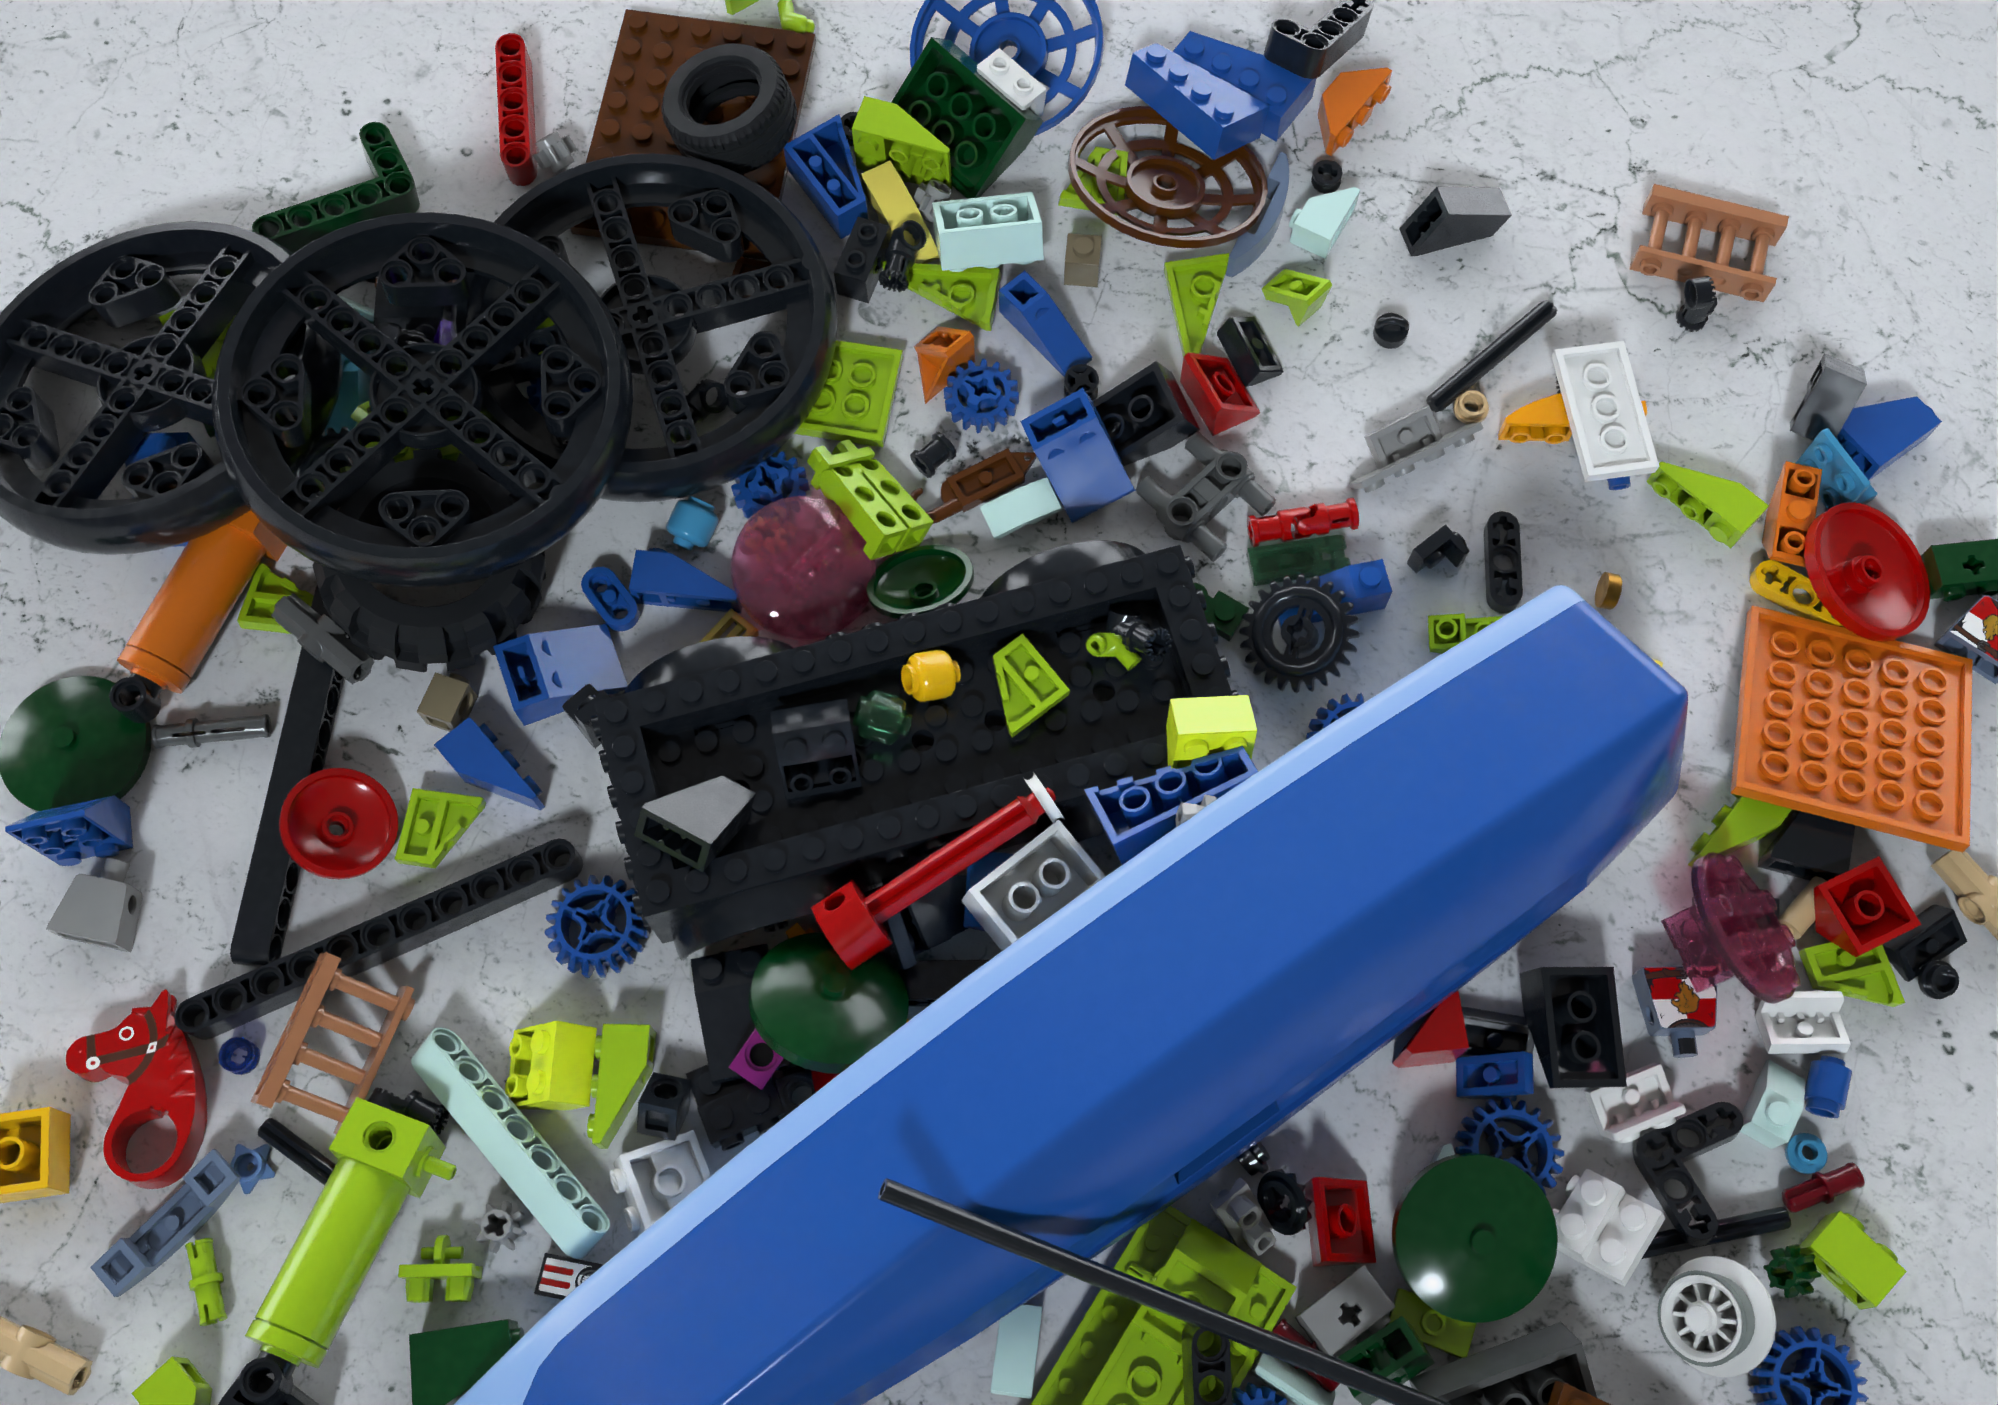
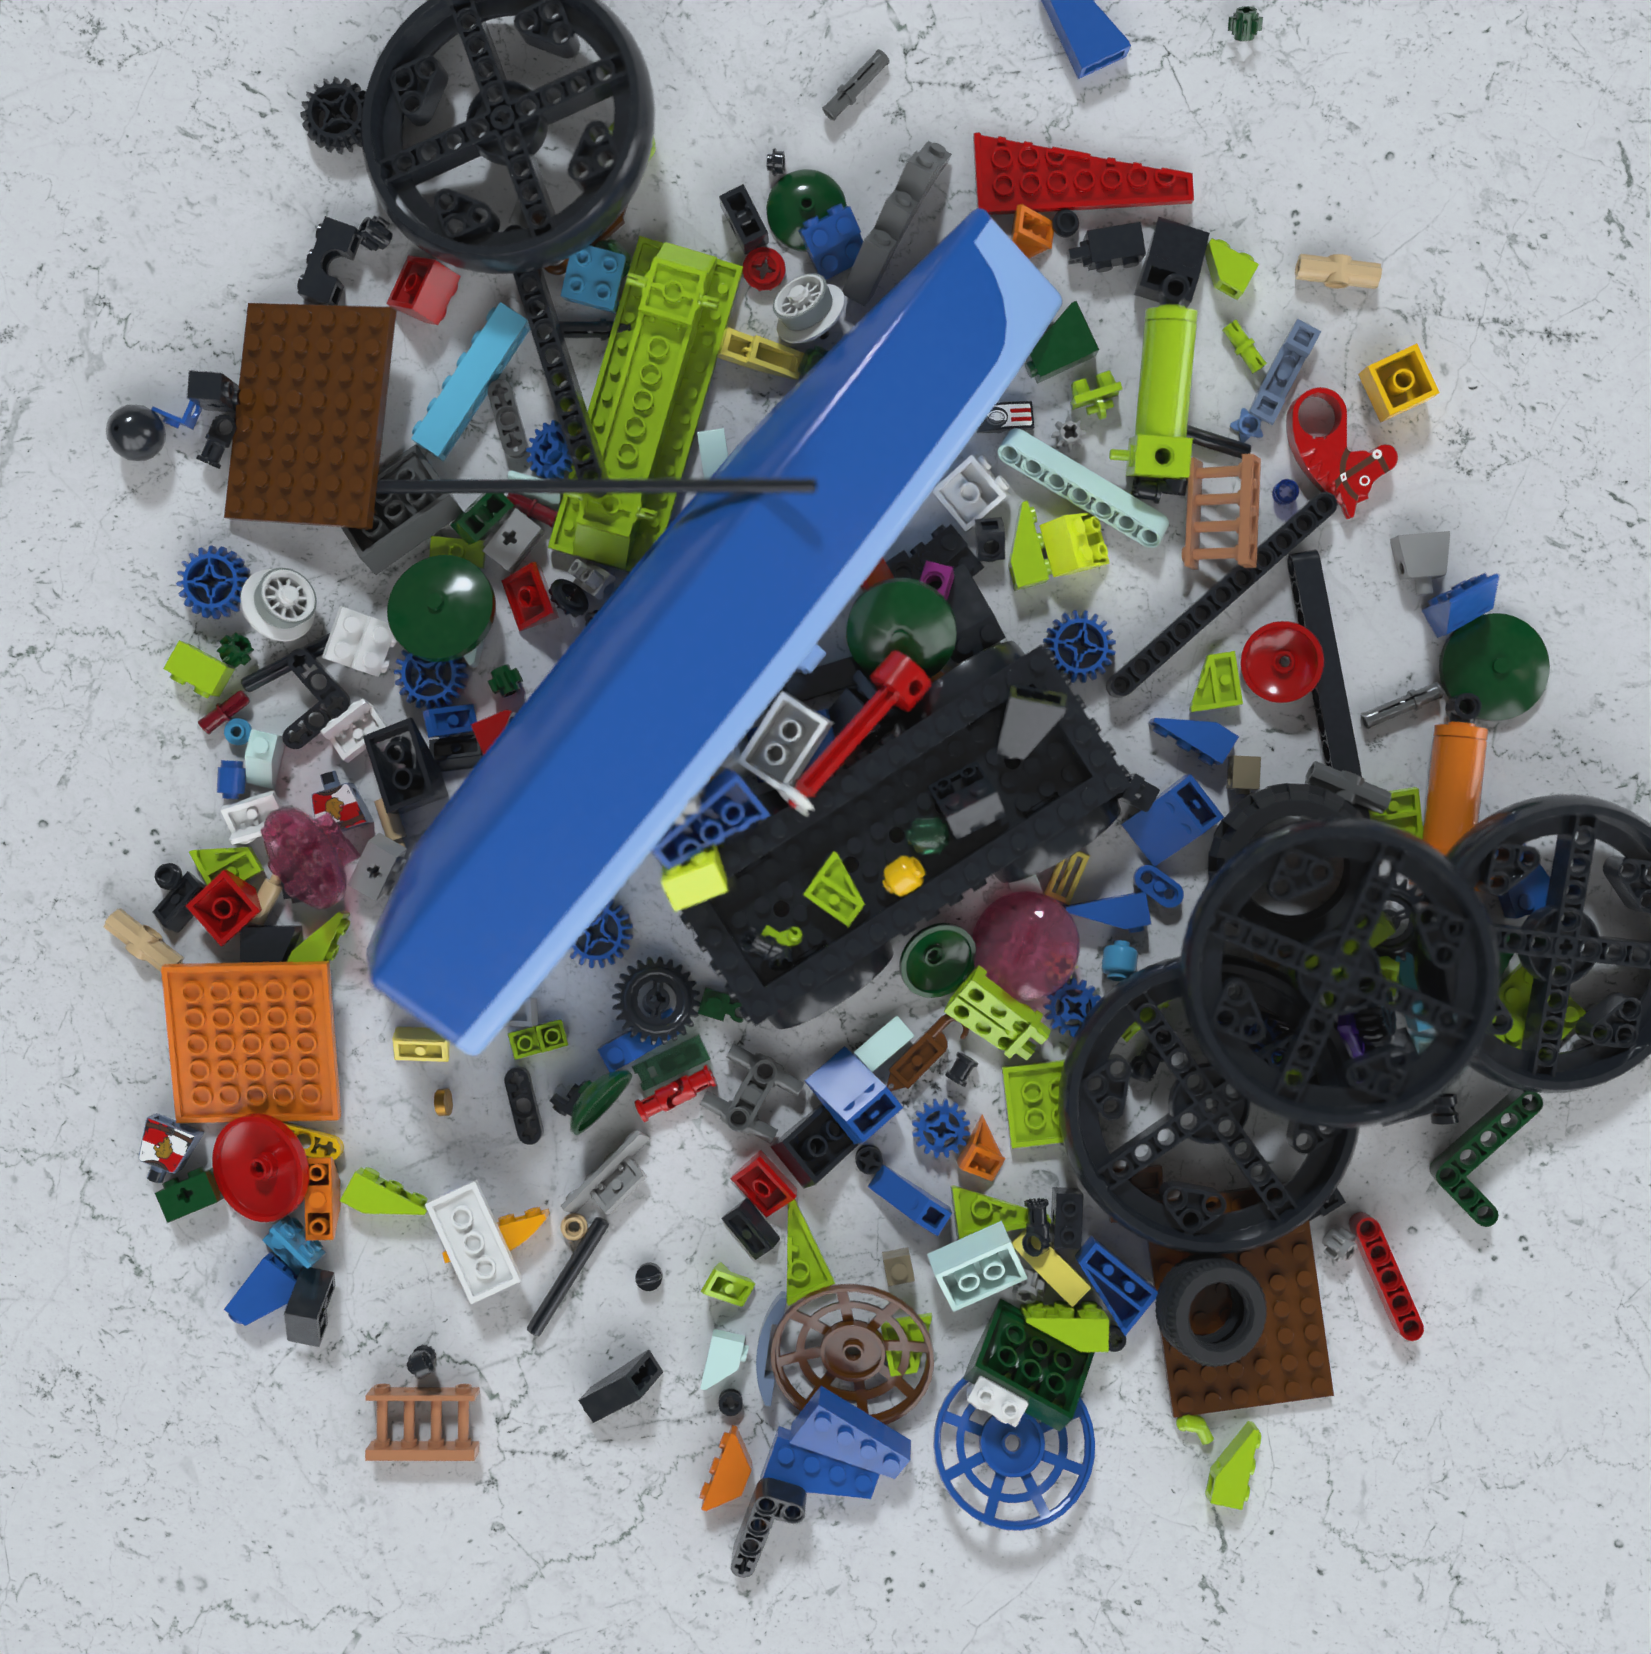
camera: 165 degrees right, 20 degrees up
(1403, 1110) = (505, 681): none -> dark green gear
(1407, 532) = (597, 1098): none -> dark green dish
(1606, 953) = (391, 823): none -> tan cylinder
(1639, 905) = (378, 866): none -> light grey brick

